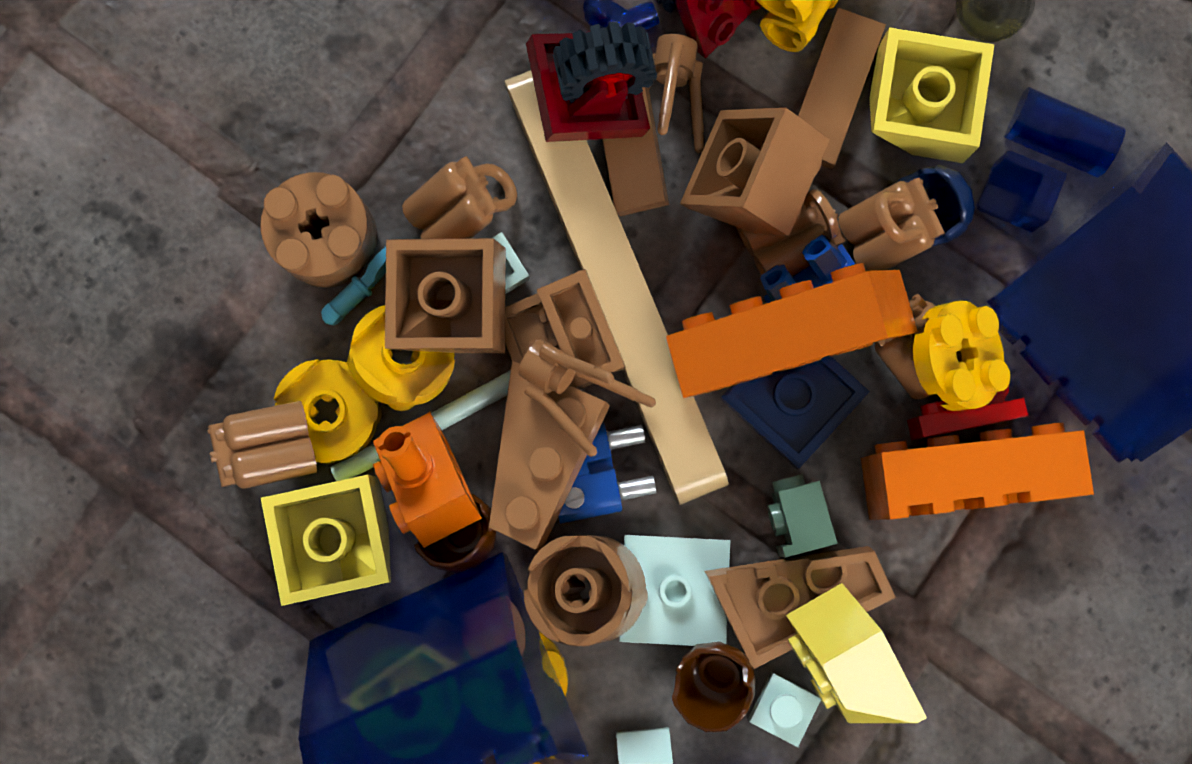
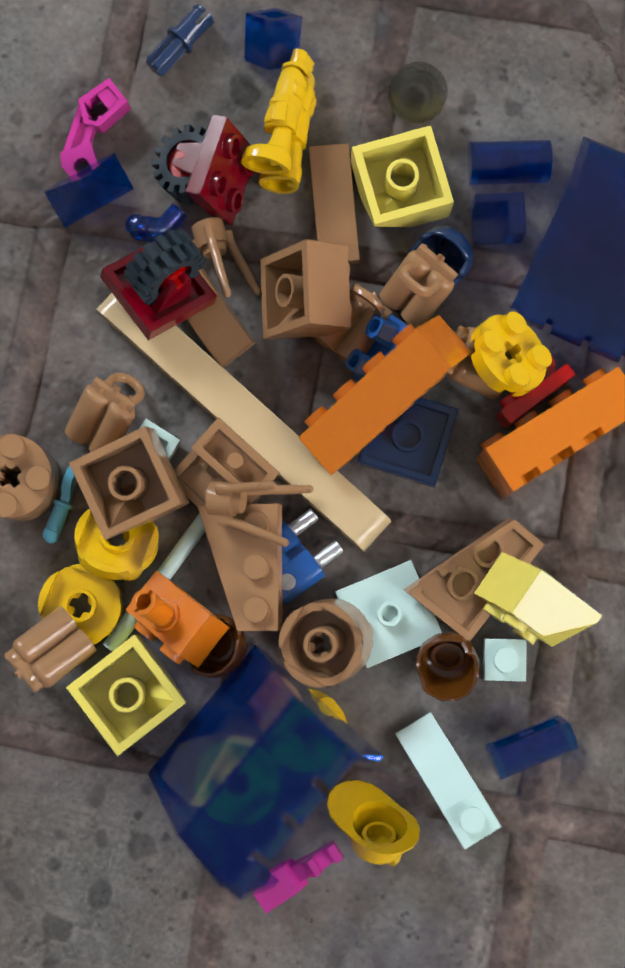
camera: 30 degrees left, 0 degrees up
(800, 516) = (451, 519): sand green brick -> none

